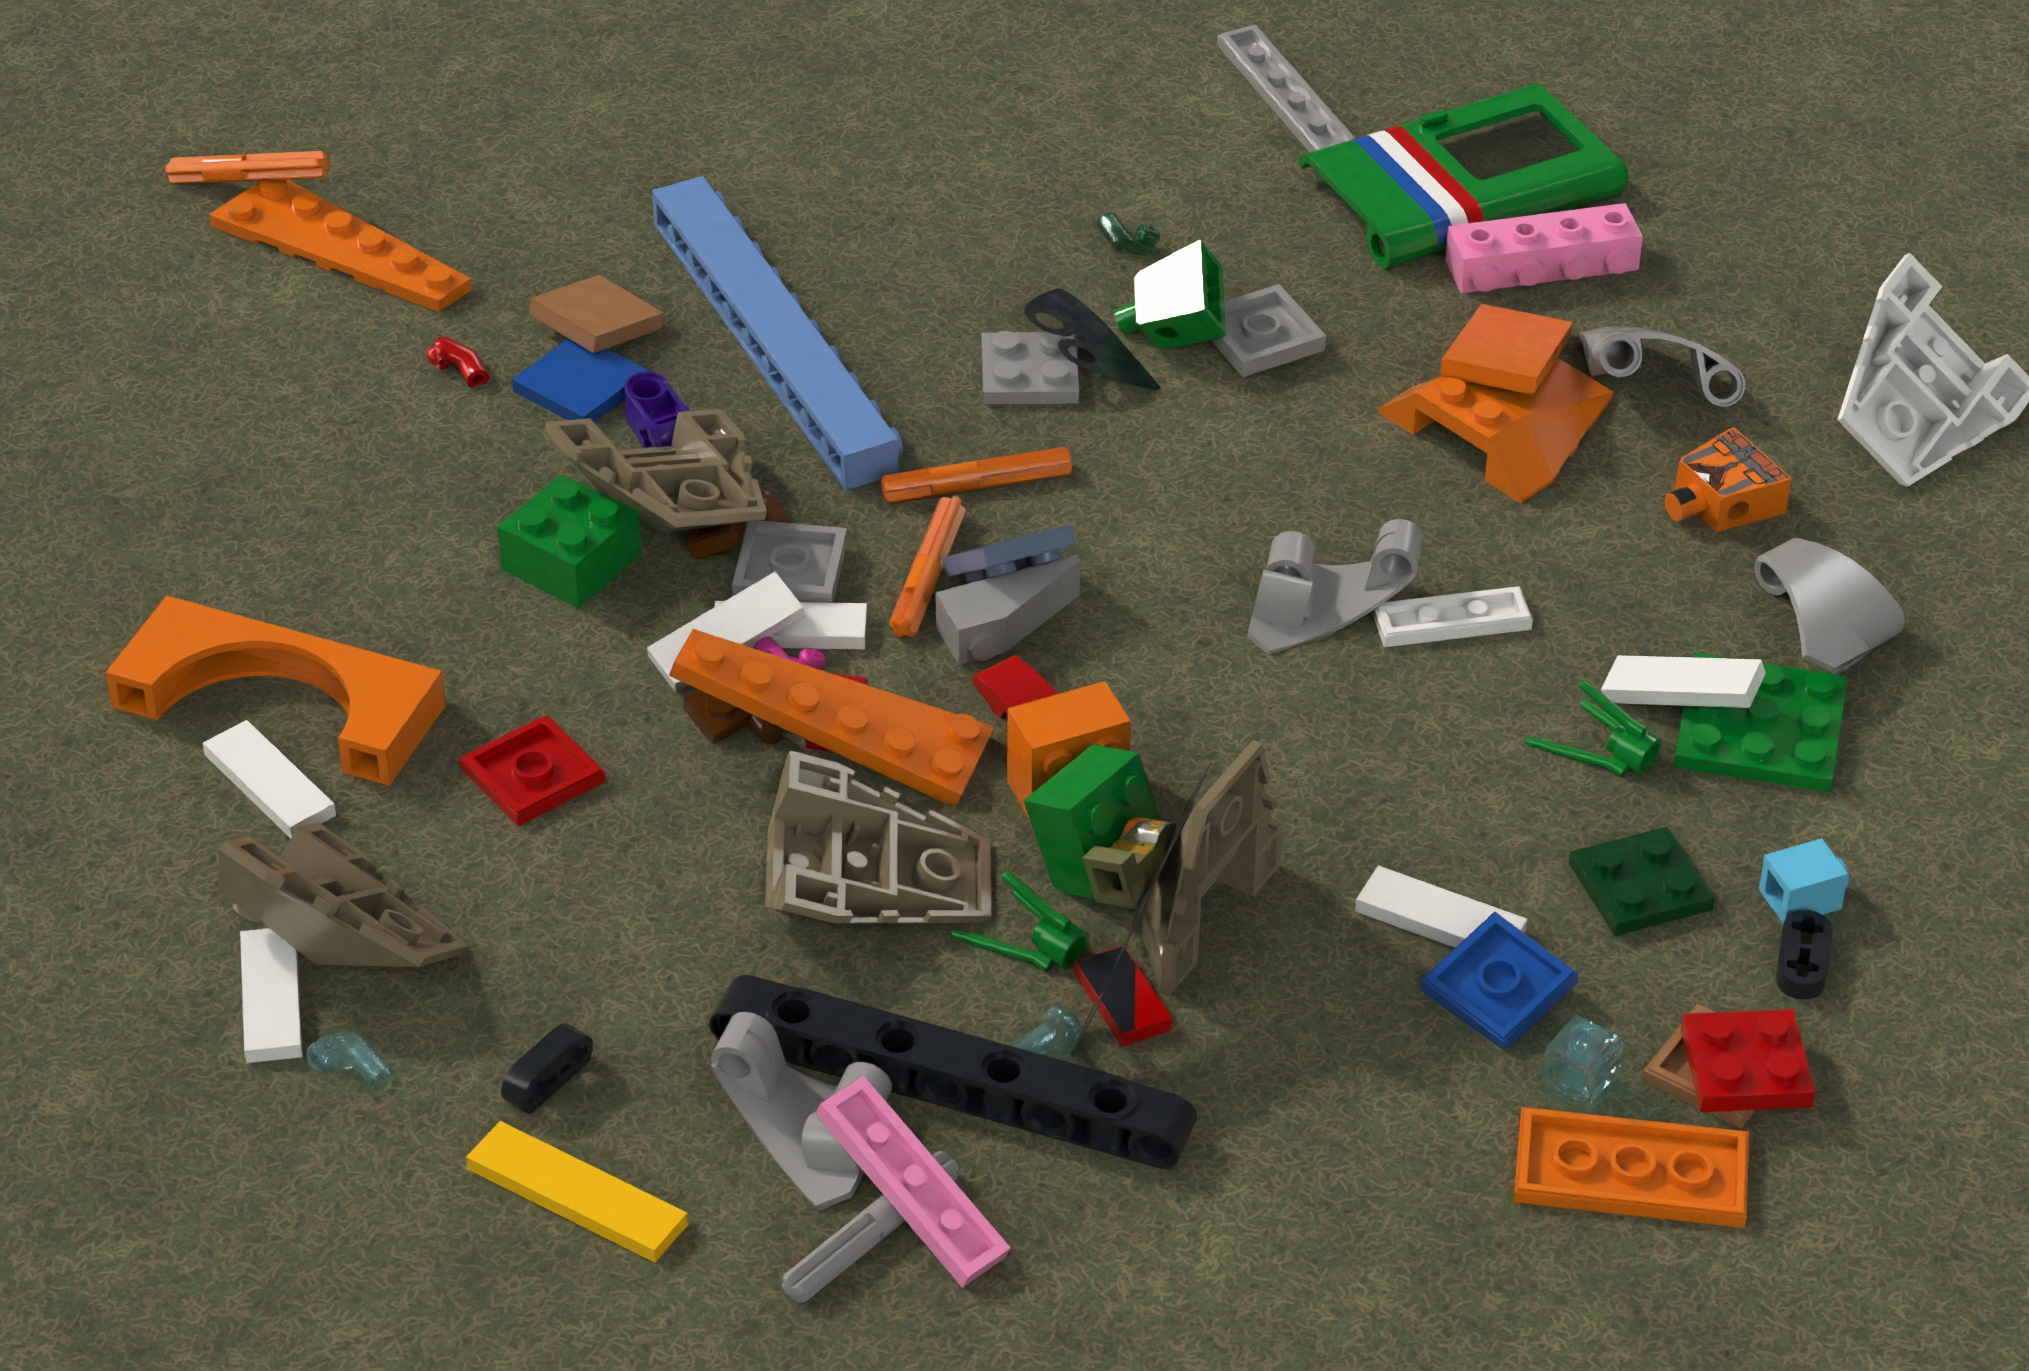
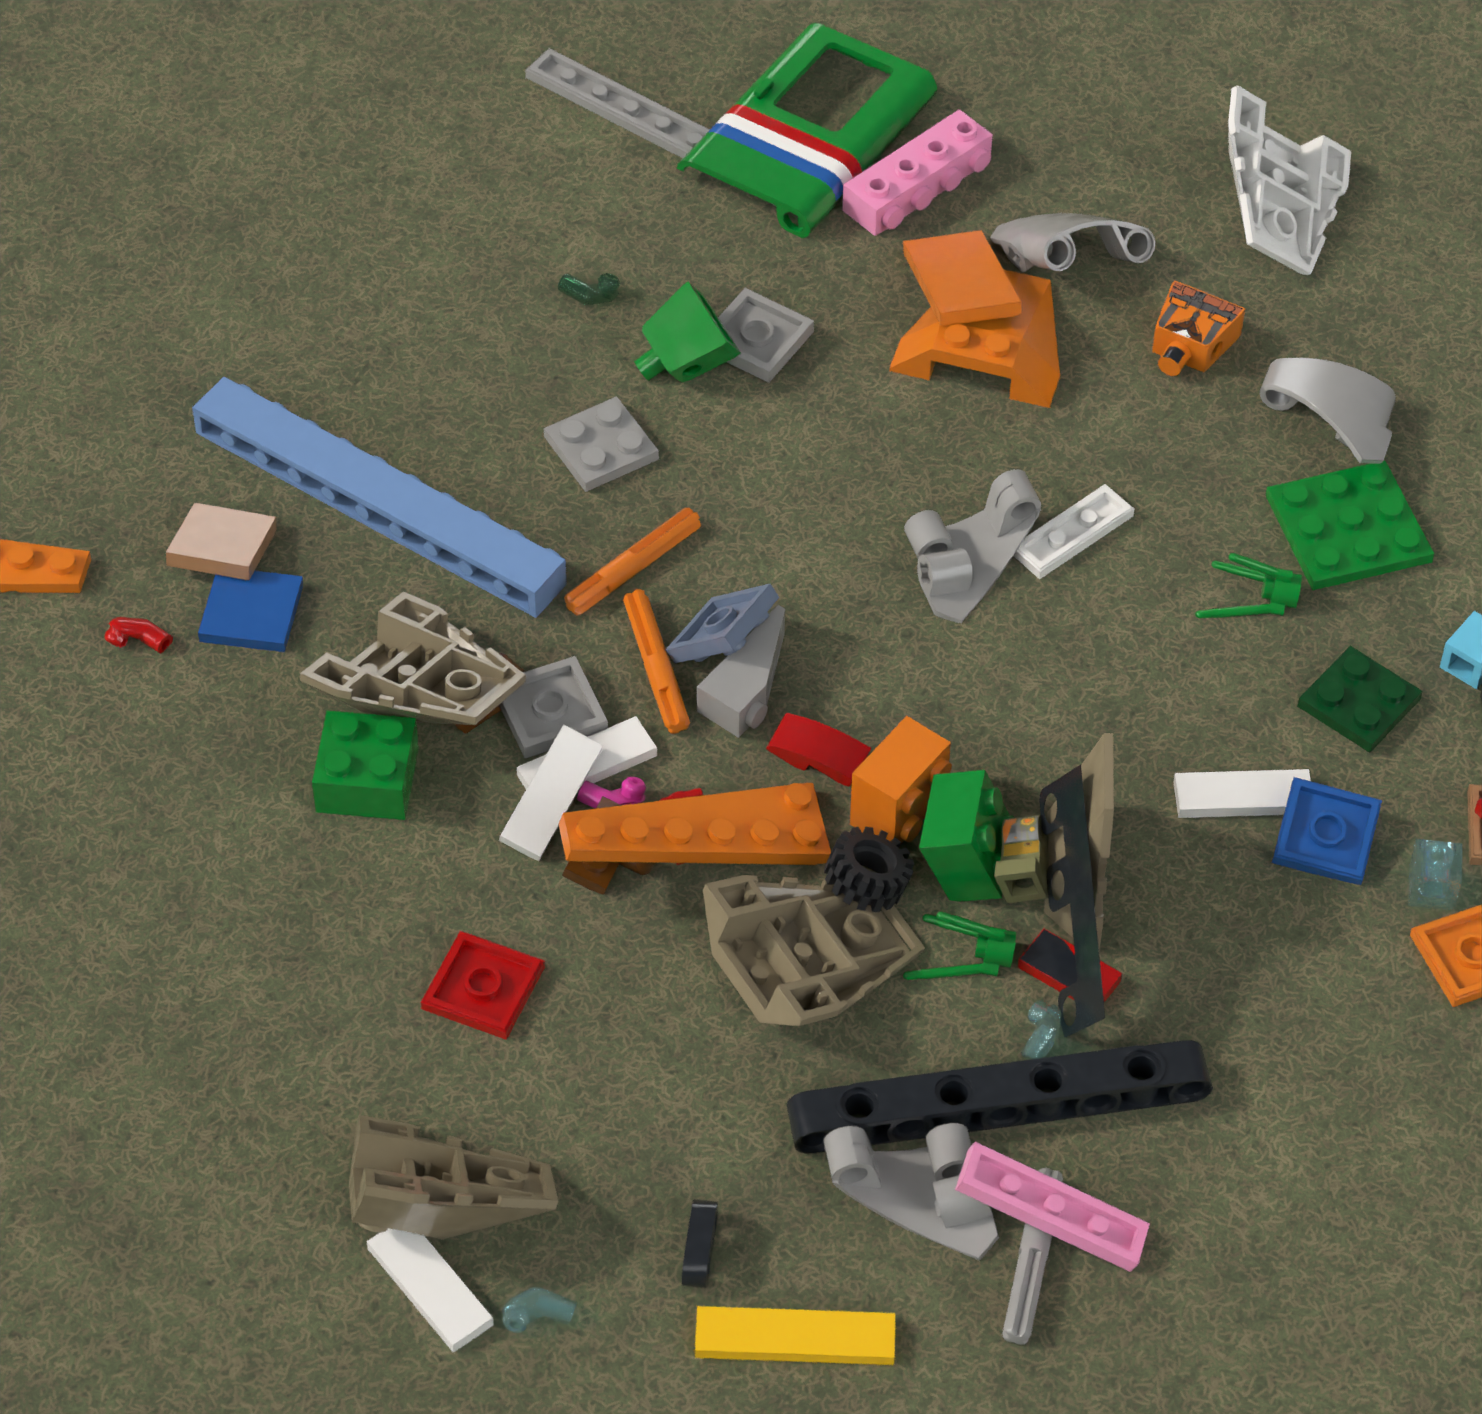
camera: 30 degrees left, 10 degrees up
(196, 645) = (134, 998): orange arch -> none
(268, 778) = (279, 1092): white tile -> none
(652, 408) = (343, 615): dark purple piece -> none
(971, 835) = (860, 884): none -> black tyre
(1111, 354) = (667, 411): black piece -> none
(1684, 681) = (1284, 517): white tile -> none

